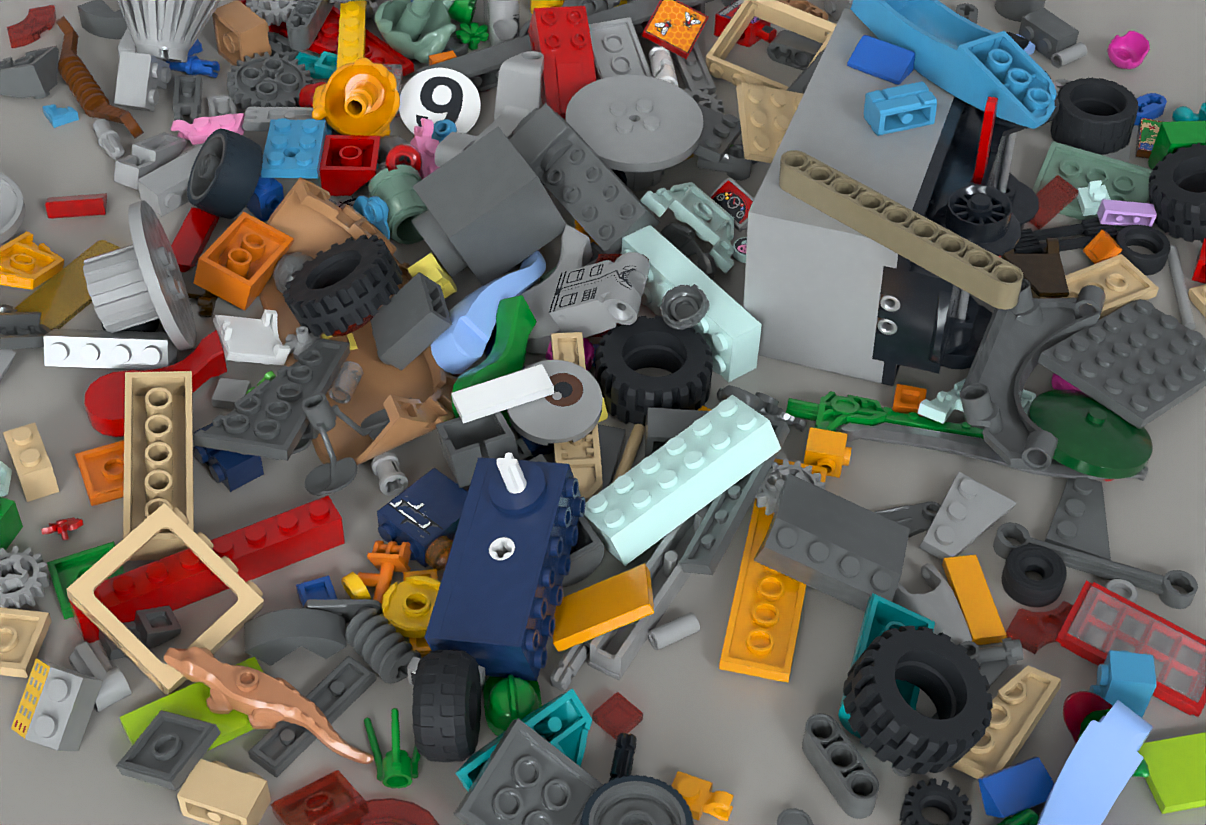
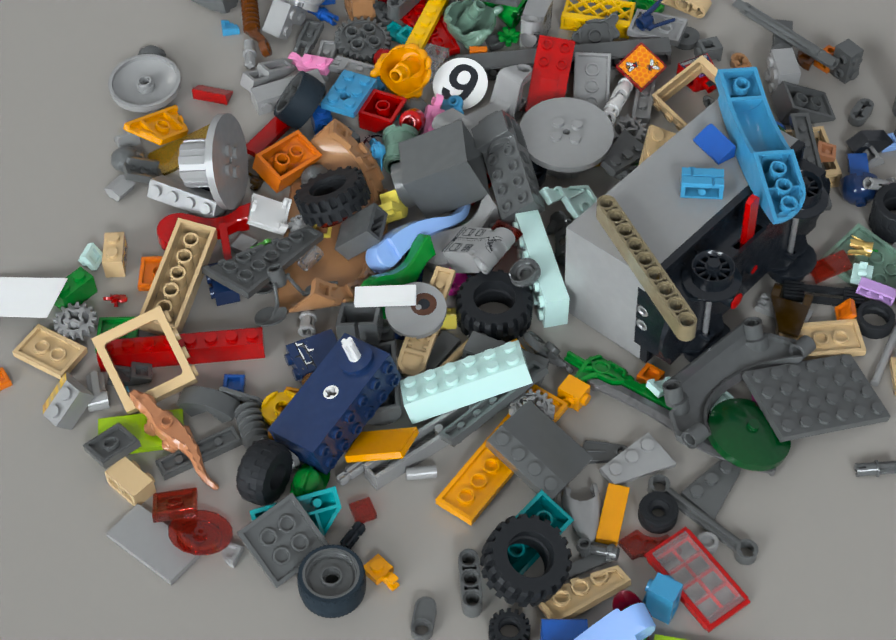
camera: 25 degrees right, 5 degrees up
(203, 396) = (225, 241): none -> red tile
(355, 587) = (254, 387): yellow tile -> none
(387, 559) = (281, 375): orange arm -> none
(397, 767) = (227, 496): green plant -> none
(1078, 168) = (861, 247): none -> pearl gold piece

